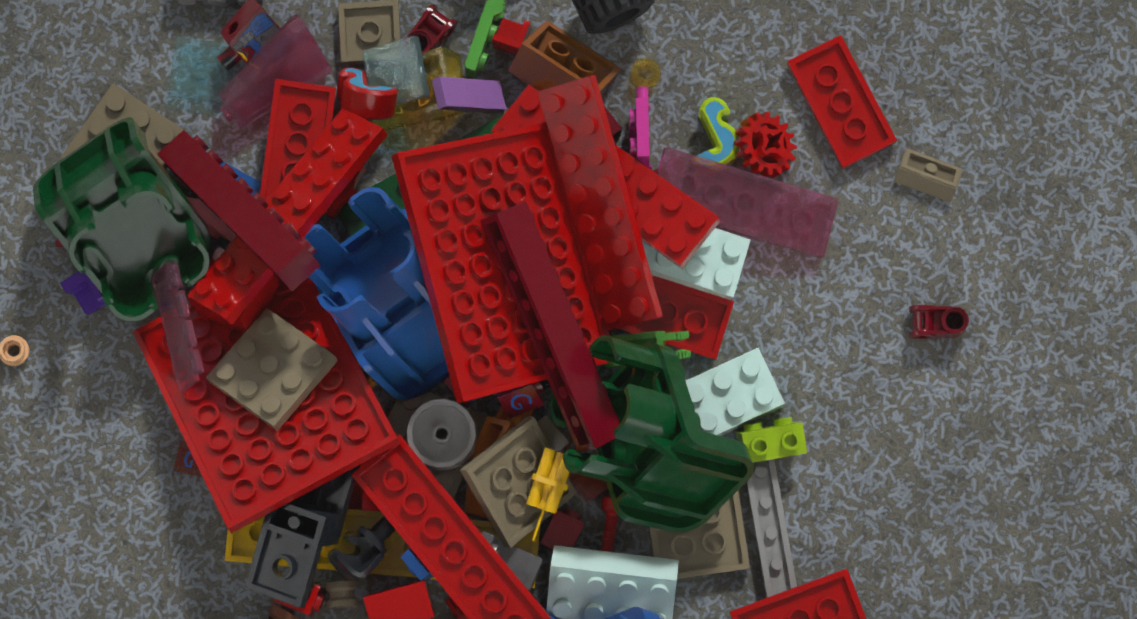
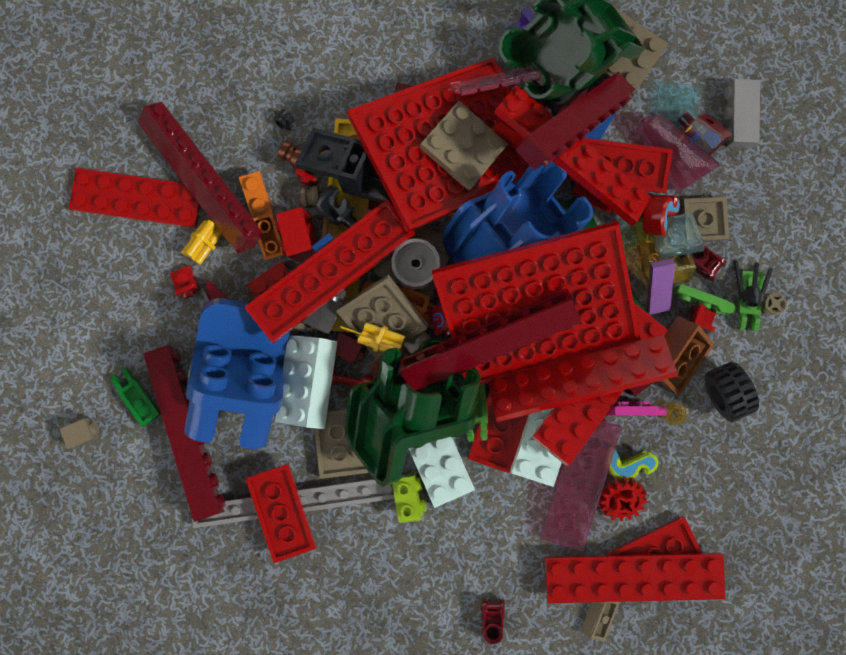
camera: 85 degrees right, 5 degrees up
(872, 129) = (635, 577): none -> red plate

